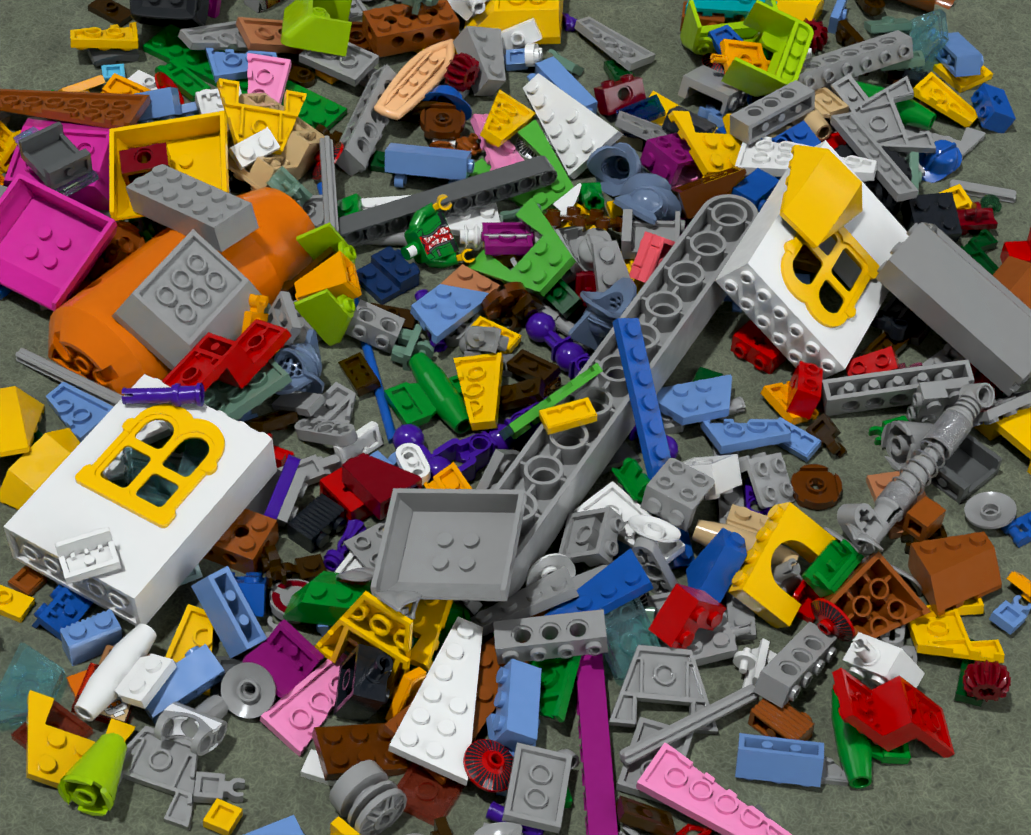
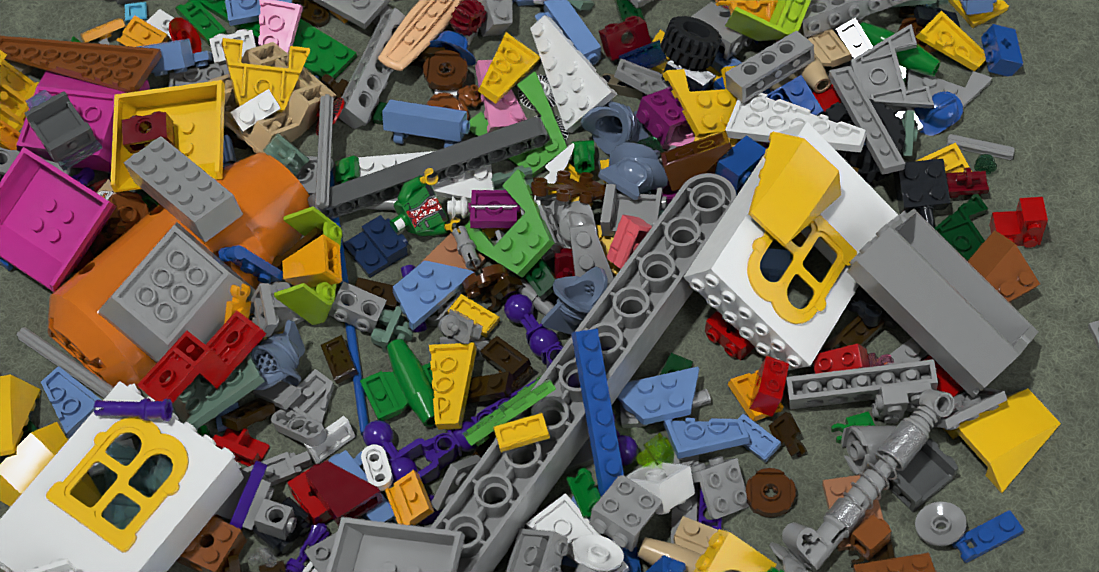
camera: 10 degrees right, 10 degrees up
(263, 278) = (251, 264): none -> blue plate
(297, 549) = (262, 555): none -> clear arm
(313, 509) = (271, 510): none -> light grey brick
(481, 272) = (466, 247): none -> light grey pin
(690, 92) = (691, 42): none -> black tyre
(696, 447) = (656, 451): none -> clear neon green hinge

